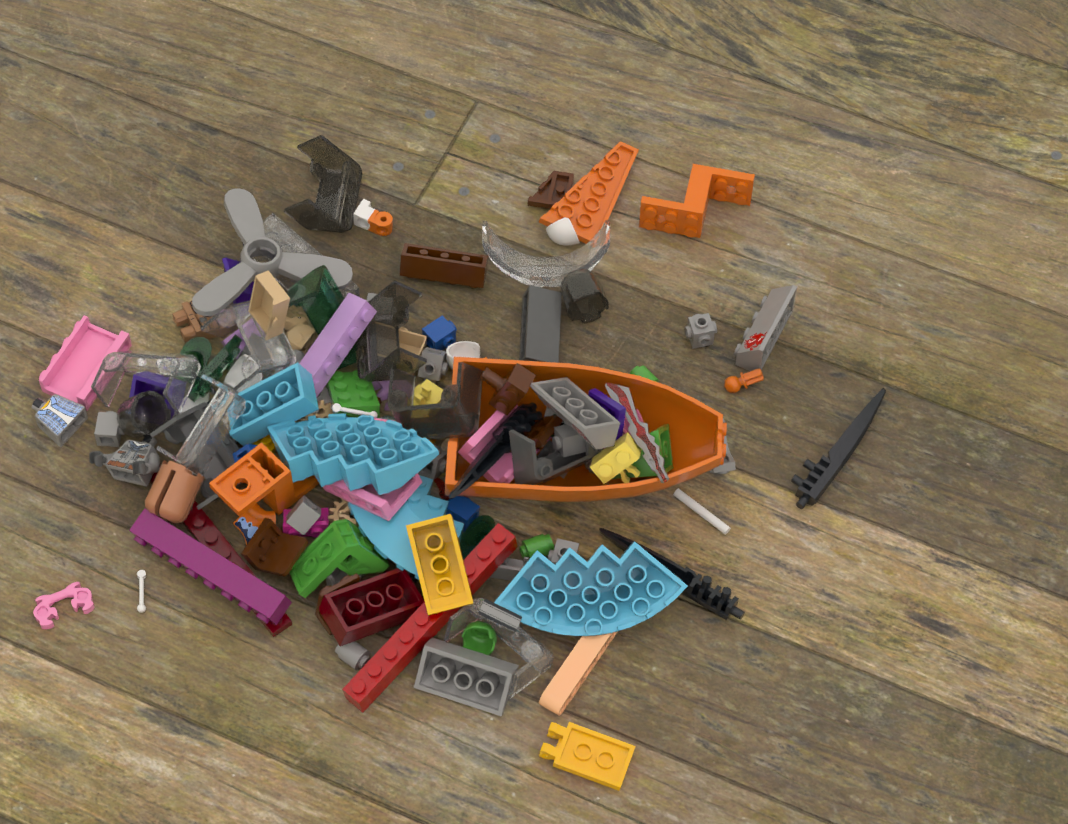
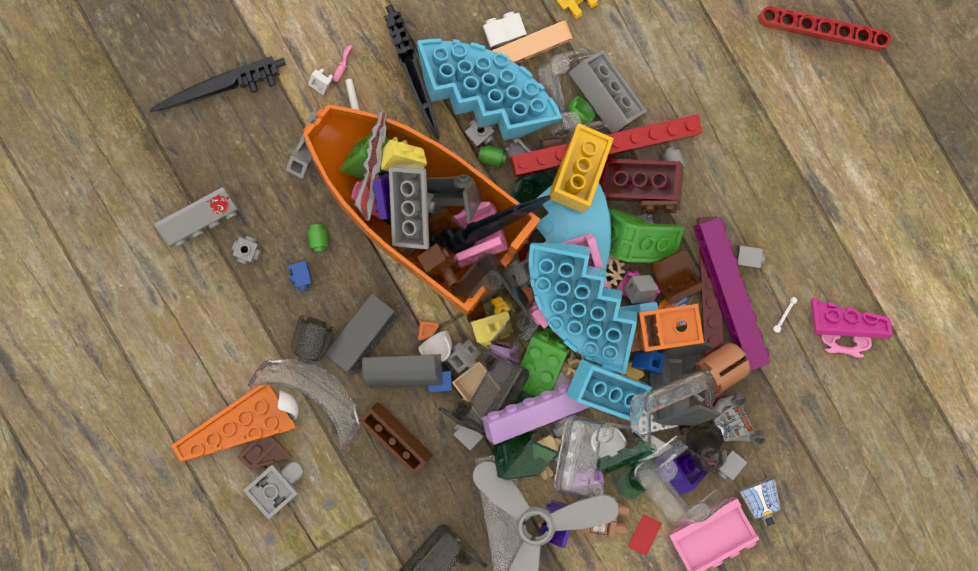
camera: 145 degrees left, 30 degrees up
(77, 614) = (838, 321): none -> dark pink wing
(152, 331) = (644, 534): none -> red sticker
(213, 615) = (750, 257): none -> light grey brick
(269, 304) = (566, 465): tan container -> none
(292, 495) = (641, 307): none -> medium azure tile
(337, 407) = (567, 351): white hinge -> none
(373, 220) = (419, 521): leg -> none
(481, 319) = (402, 370): none -> dark grey brick
(488, 591) = (547, 143): none -> reddish brown tile
(500, 615) = (563, 105): sticker -> none
(521, 167) = (275, 487): none -> light grey brick
(612, 666) = (504, 30): none -> white brick
(635, 342) = (301, 275): none -> blue brick
(703, 185) = (164, 362): orange bracket -> none
(733, 383) = (254, 193): orange axle -> none
(743, 539) = (341, 67): none -> bright pink piece
(752, 508) = (319, 81): none -> white tile

